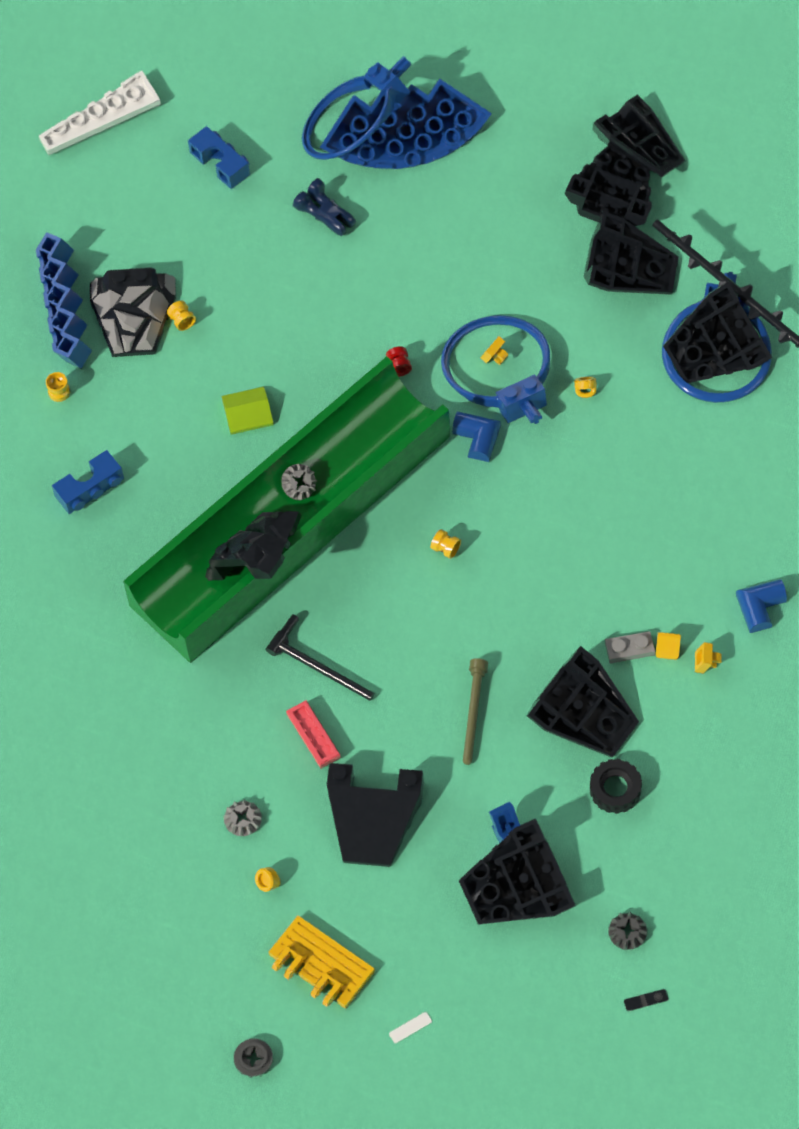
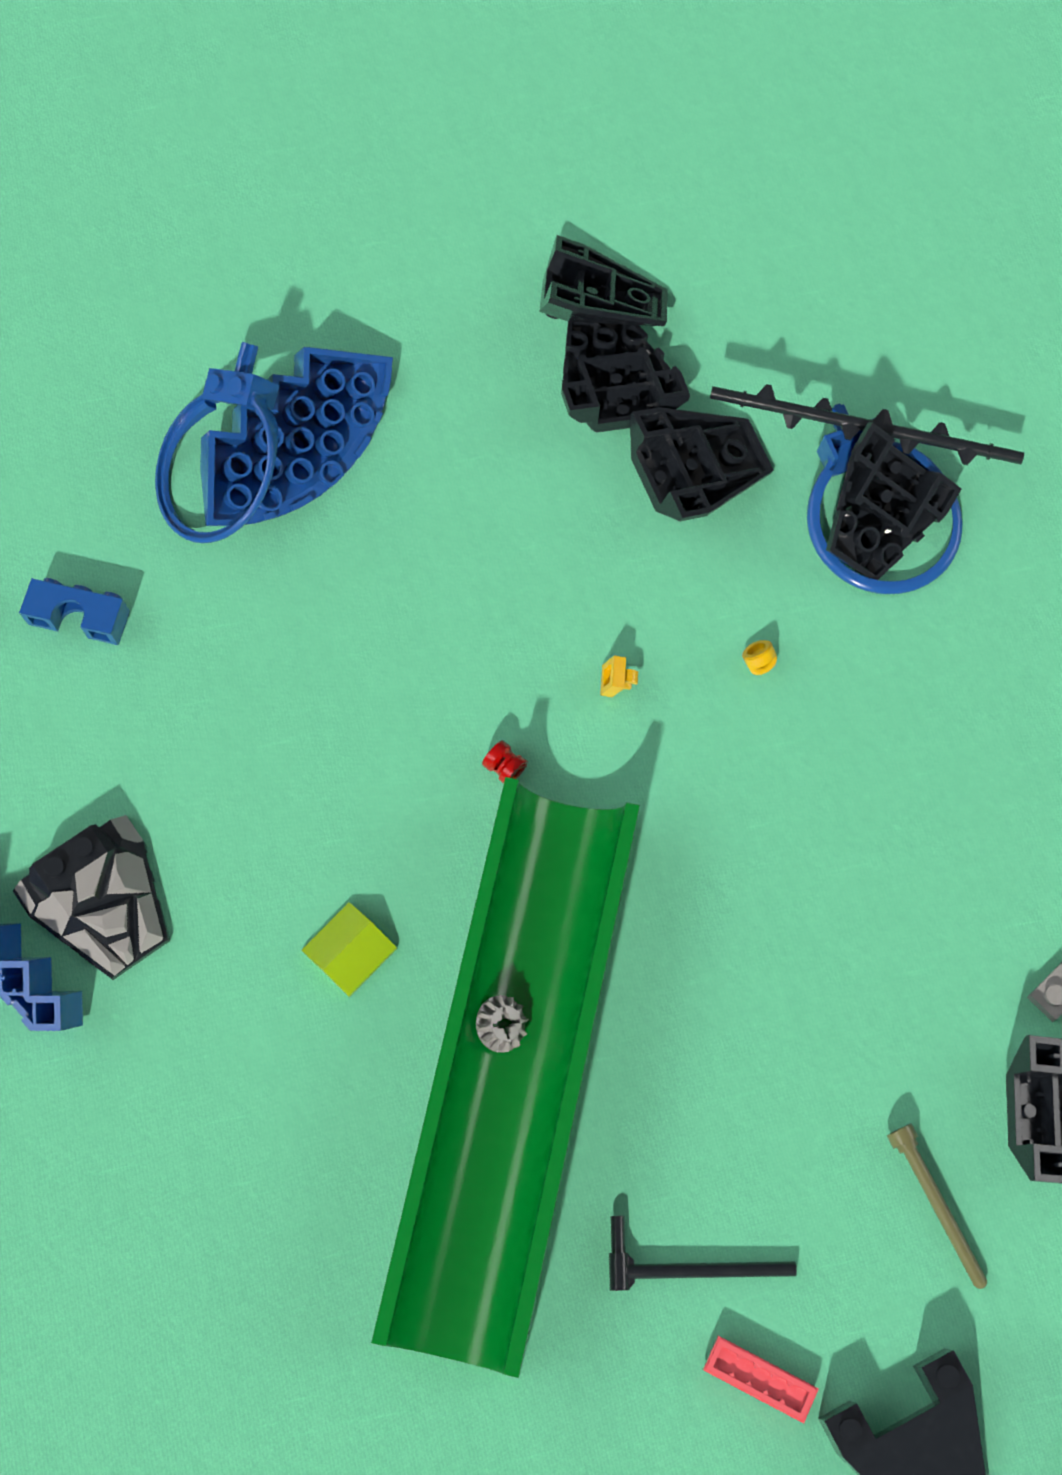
camera: 35 degrees left, 10 degrees up
(57, 387) = (62, 1071): yellow wheel -> none
(75, 494) = (197, 1226): blue arch -> none
(179, 313) = (172, 867): yellow wheel -> none
(256, 547) = (522, 1166): black wedge -> none
(329, 210) = (272, 608): dark blue piece -> none
(445, 544) = (742, 986): yellow wheel -> none
(481, 430) = (677, 797): blue brick -> none
(517, 399) = (696, 722): blue brick -> none

